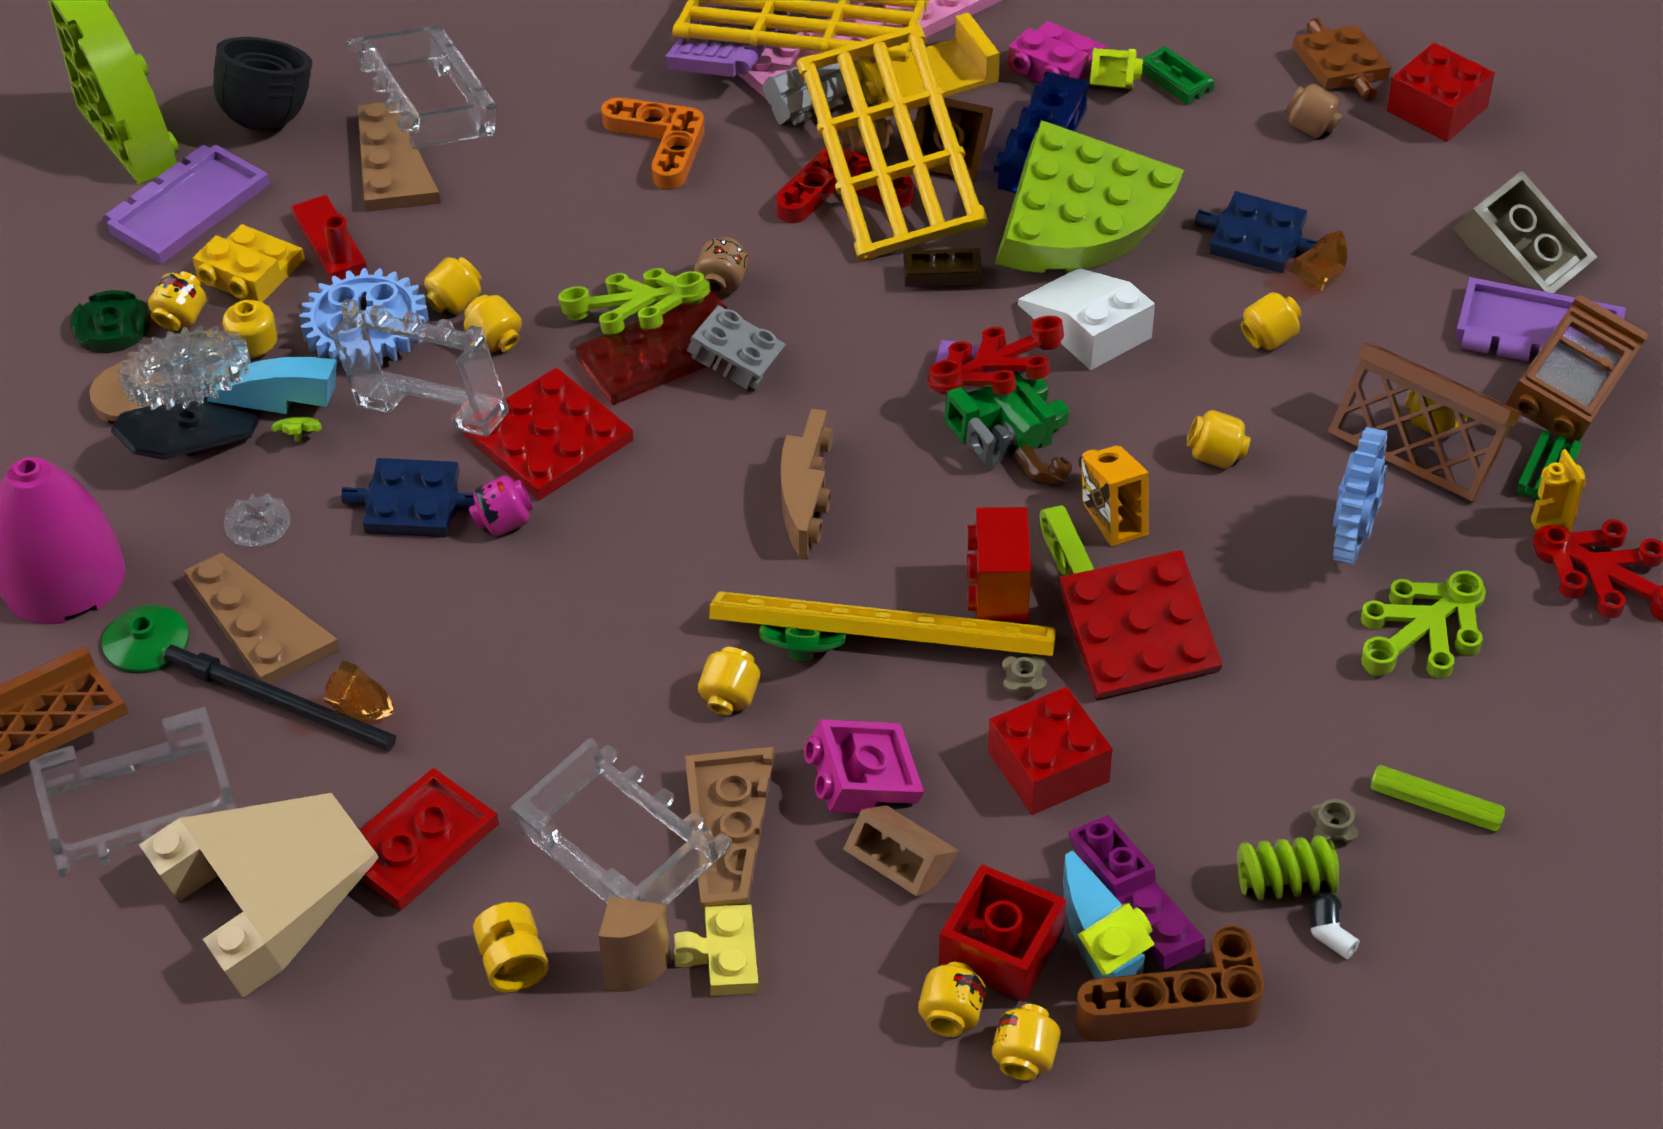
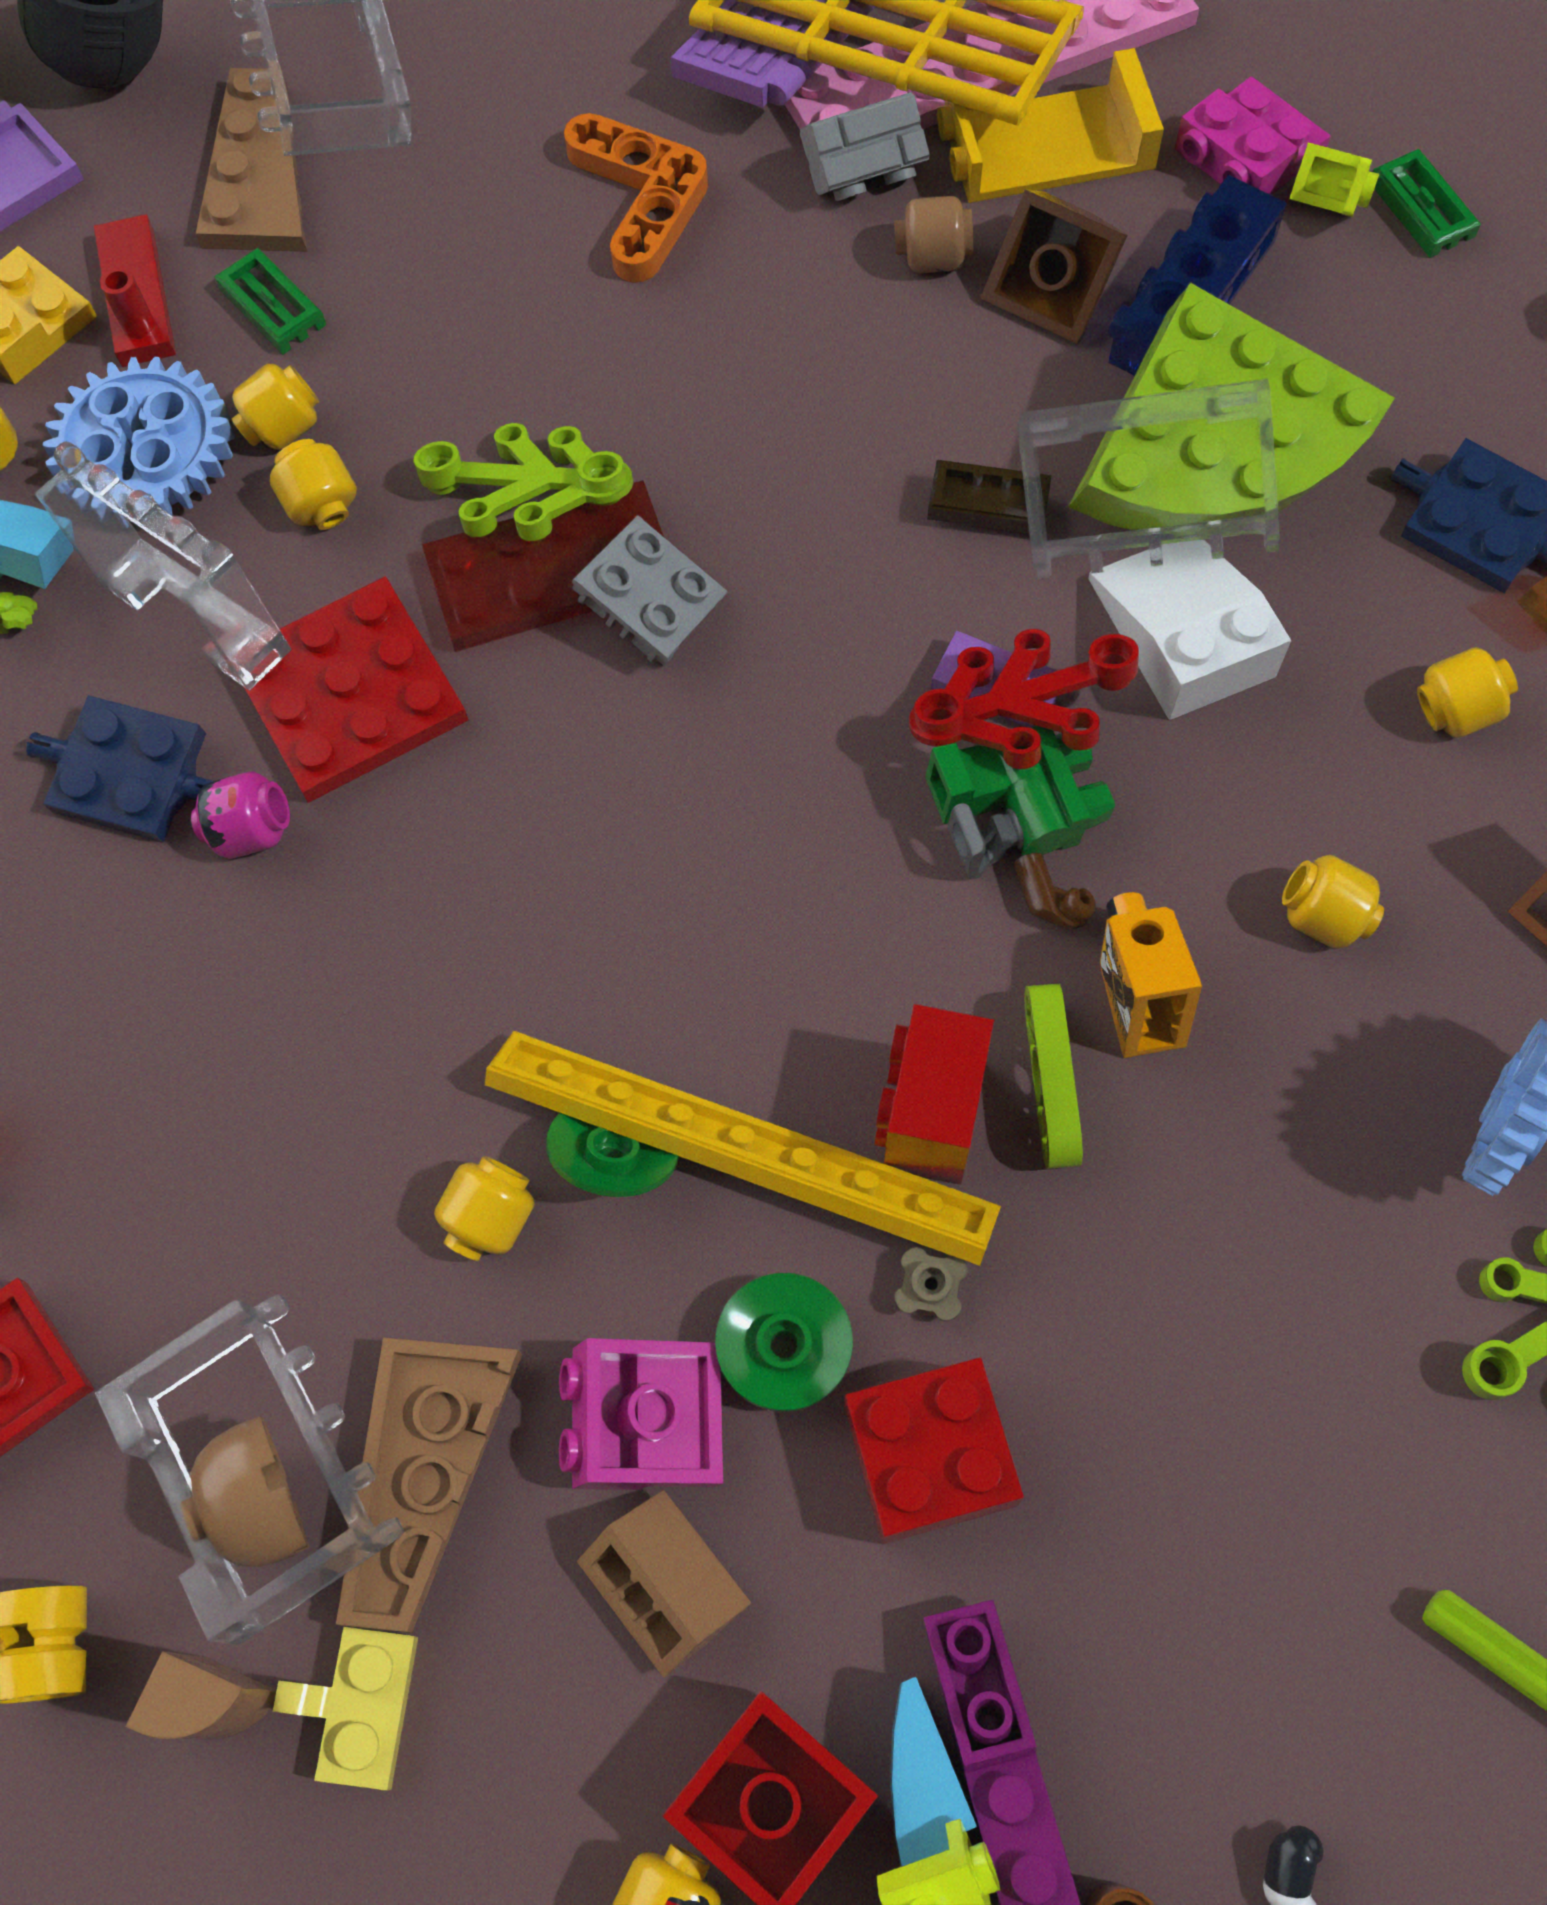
camera: 15 degrees right, 20 degrees up
(421, 235) = (292, 326): none -> green tile
(628, 836) = (244, 1499): none -> medium nougat cylinder
(722, 264) = (663, 441): medium nougat head -> none
(804, 482) = (681, 858): medium nougat slope -> none
(821, 171) = (882, 302): red beam -> none
(881, 174) = (928, 219): yellow door -> none
(941, 714) = (789, 1307): none -> green dish
(1034, 188) = (1069, 423): none -> clear hinge
(1139, 624) = (1128, 1237): red plate -> none
(1287, 866) = (1254, 1771): lime piece -> none
(1337, 812) = (1368, 1670): dark tan plate -> none

